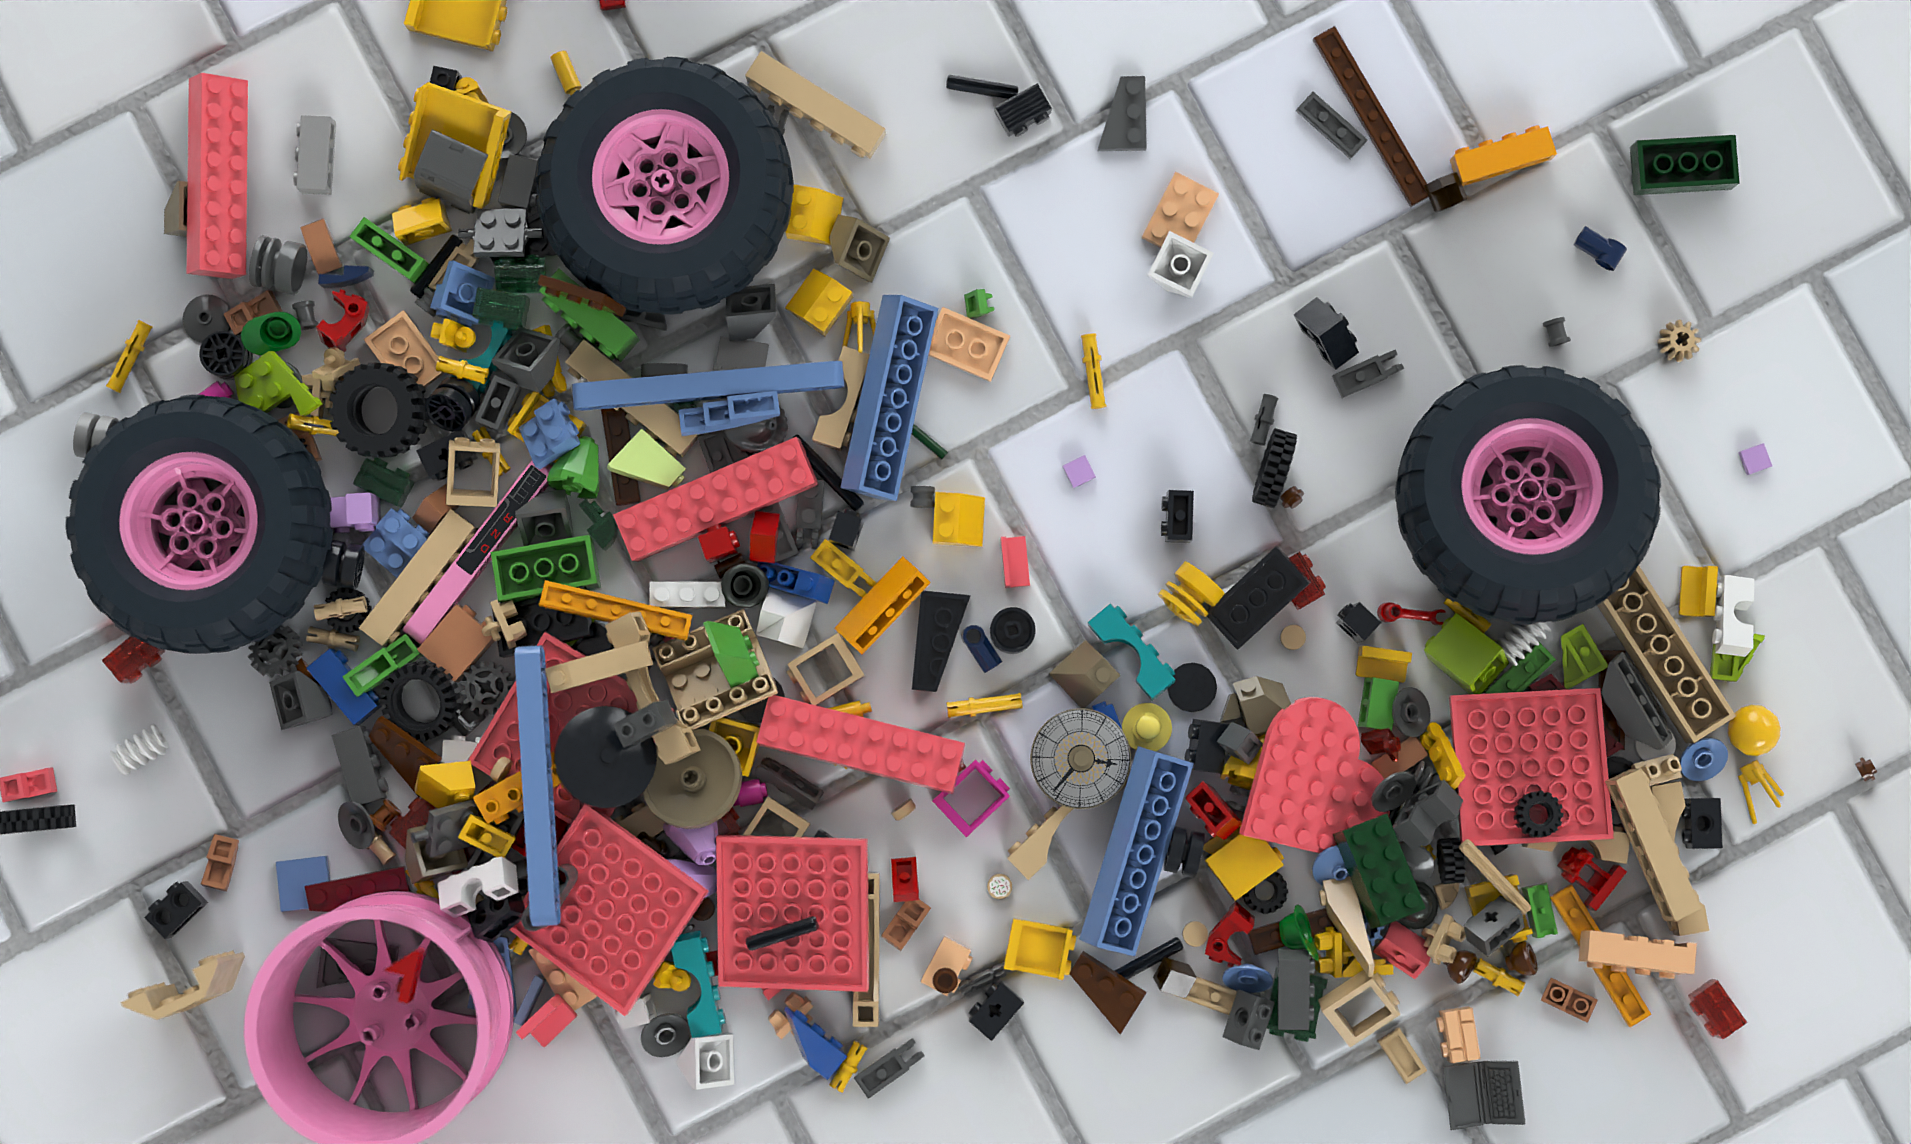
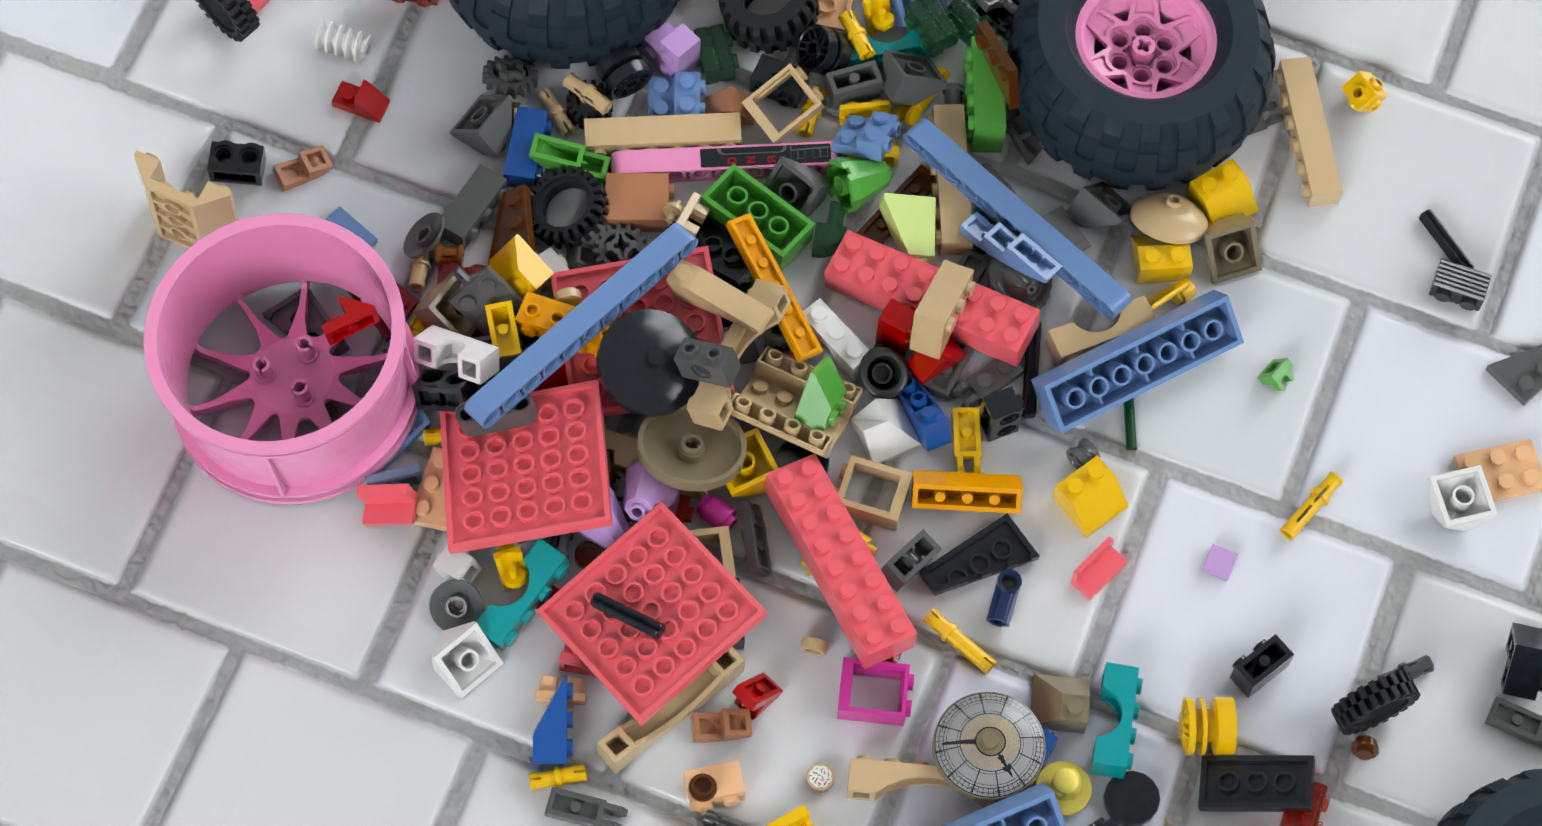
camera: 45 degrees right, 20 degrees down
(199, 774) = (361, 101): none -> red slope
(738, 509) = (941, 308): none -> tan wedge
(800, 280) = (1169, 218): none -> tan dish
(821, 36) = (1364, 92): none -> yellow brick
(899, 690) = (910, 560): none -> dark grey brick
(967, 344) = (1236, 391): light nougat plate -> none
(1008, 618) = (1042, 611): black wheel -> none

